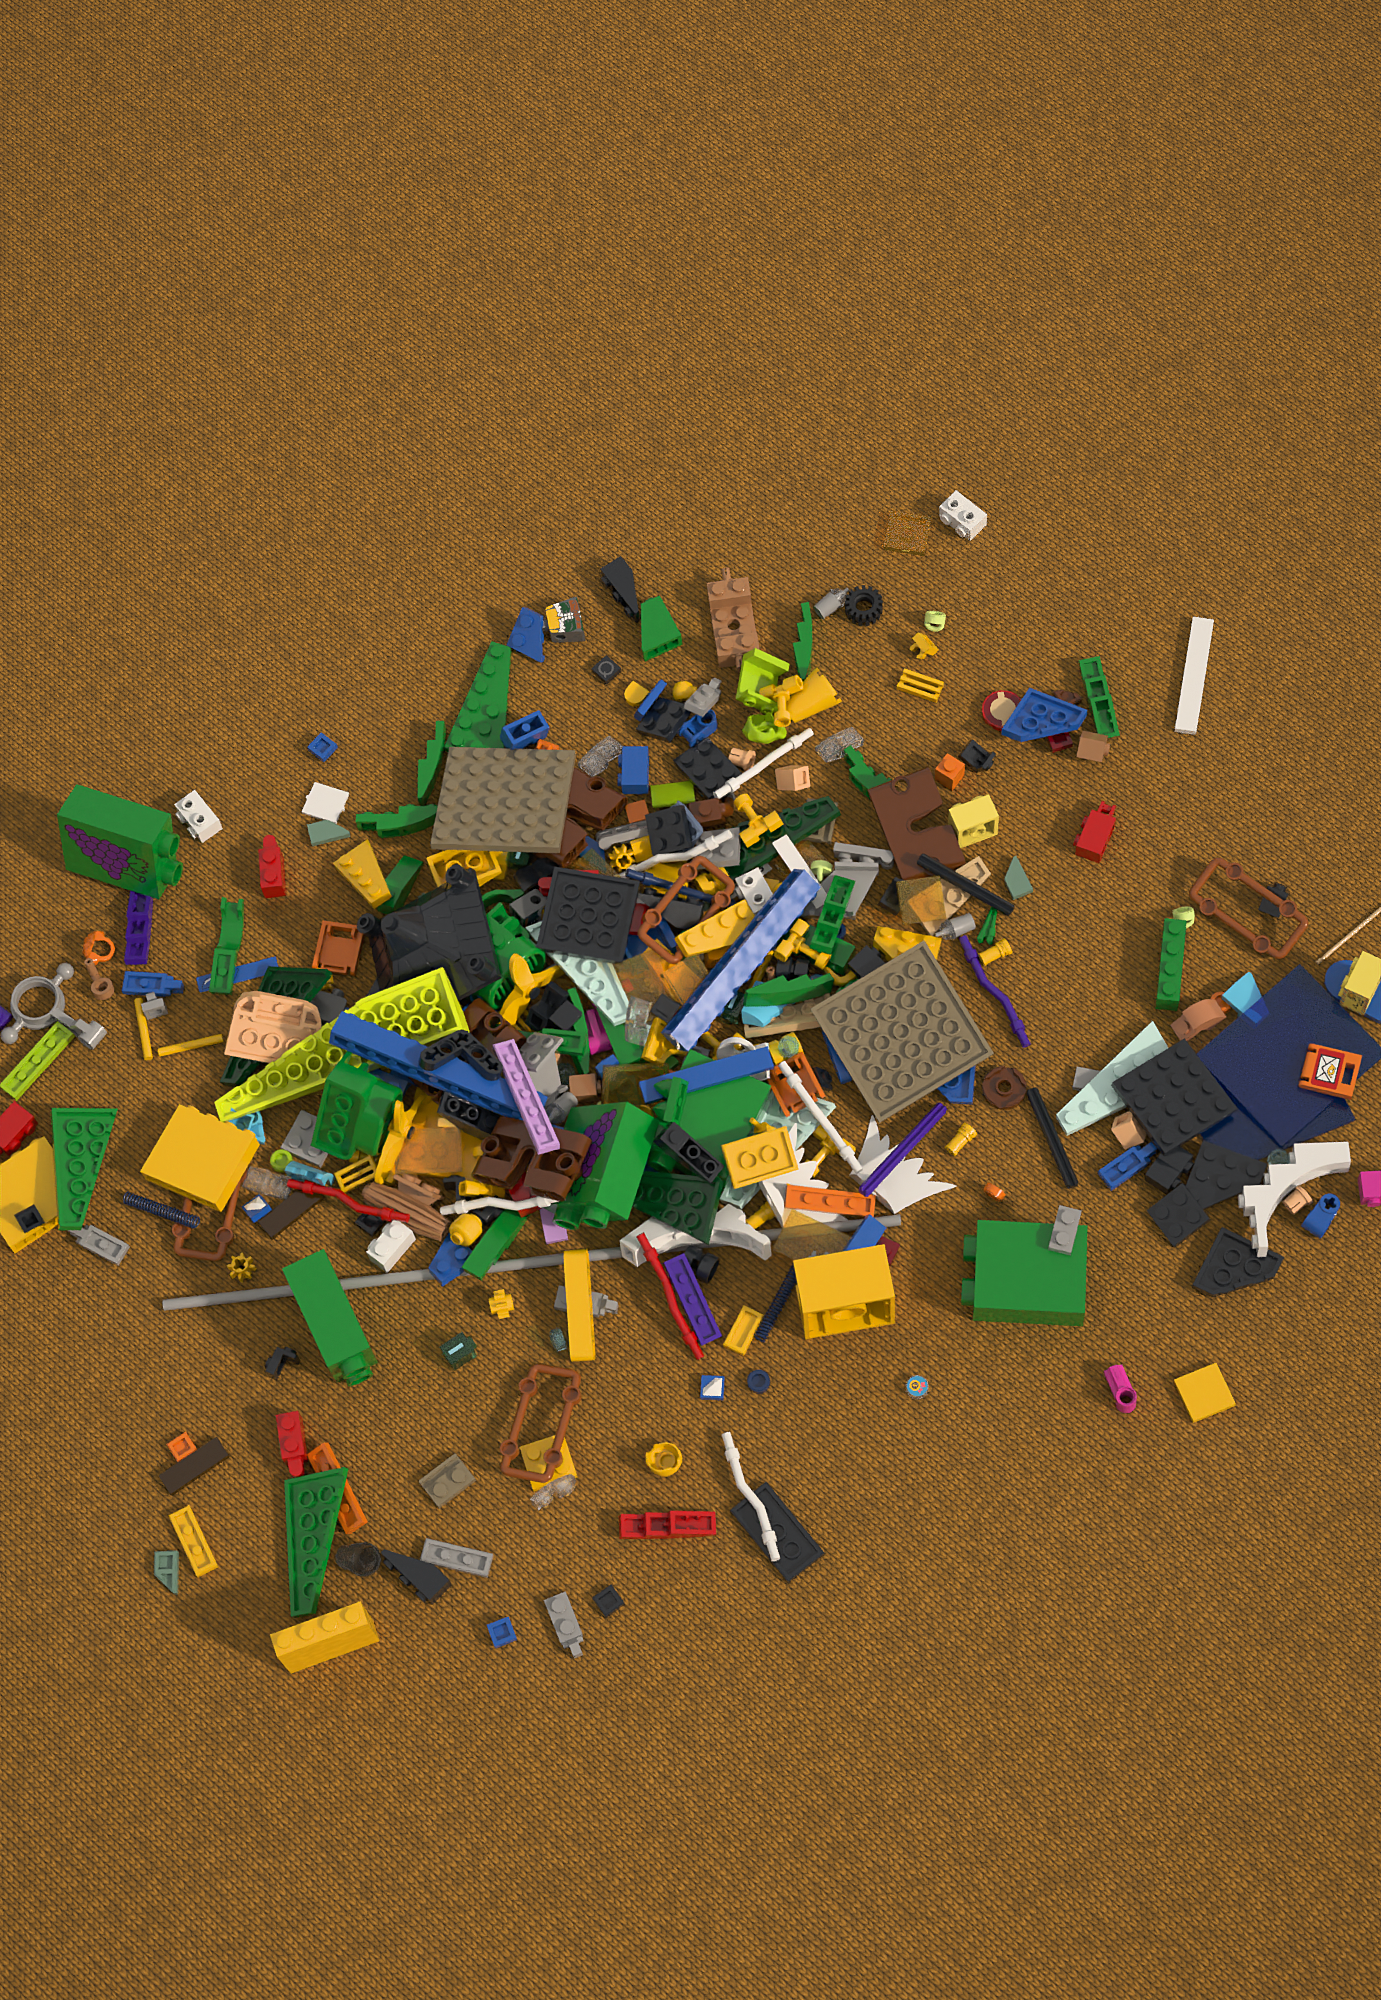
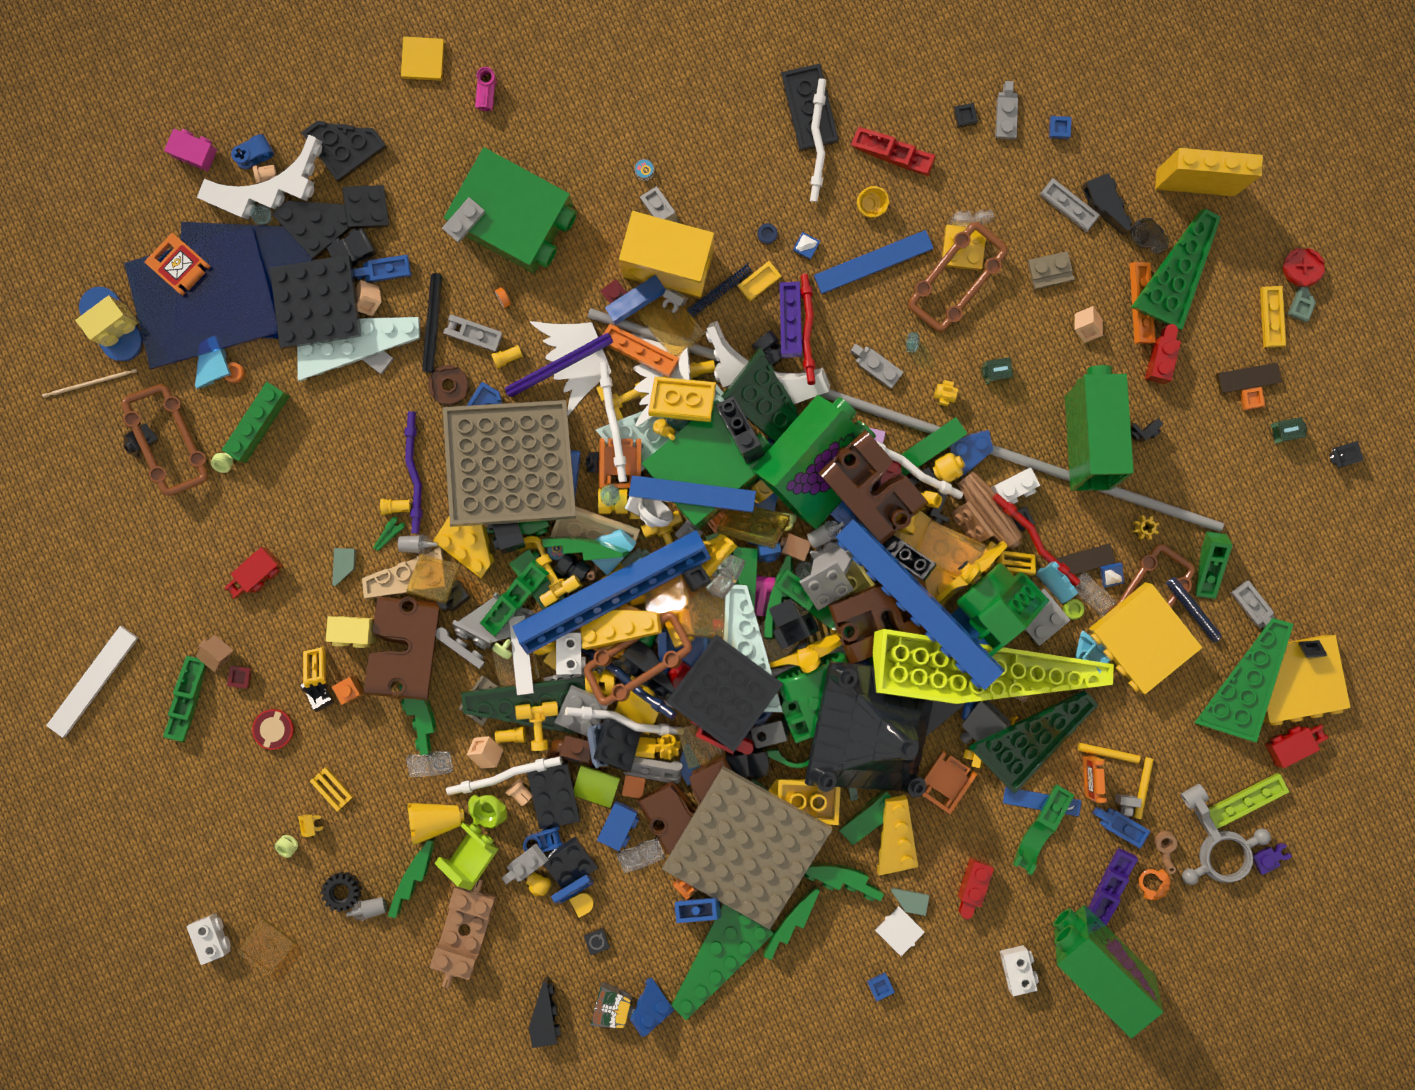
camera: 165 degrees left, 20 degrees up
(63, 1432) = (1346, 454): none -> black bracket
(132, 1429) = (1289, 430): none -> clear green brick
(159, 1263) = (1212, 564): none -> green slope
(181, 1605) = (1303, 267): none -> red tile
(196, 1007) = (1094, 778): none -> orange container
(269, 1025) = (1042, 722): light nougat plate -> none
(384, 1441) = (1088, 324): none -> light nougat panel
(467, 1045) = (889, 607): black beam -> none
(526, 1097) = (856, 540): lavender tile -> none
(579, 1305) = (884, 357): yellow beam -> none
(635, 1403) = (873, 262): none -> blue tile
(658, 629) = (532, 958): green slope -> none
(675, 1091) = (727, 486): green tile -> none
(776, 803) = (515, 735): none -> yellow pin
(781, 695) = (456, 833): yellow bar -> none
(878, 1348) = (658, 205): none -> light grey plate
(965, 884) = (388, 576): black axle -> none
(982, 762) = (322, 667): none -> yellow tile
(1005, 1145) = (473, 333): none -> light grey plate
(1042, 716) = (242, 701): blue plate -> none
(1069, 697) = (213, 713): reddish brown tile -> none
(1198, 1017) = (260, 361): nougat brick -> none

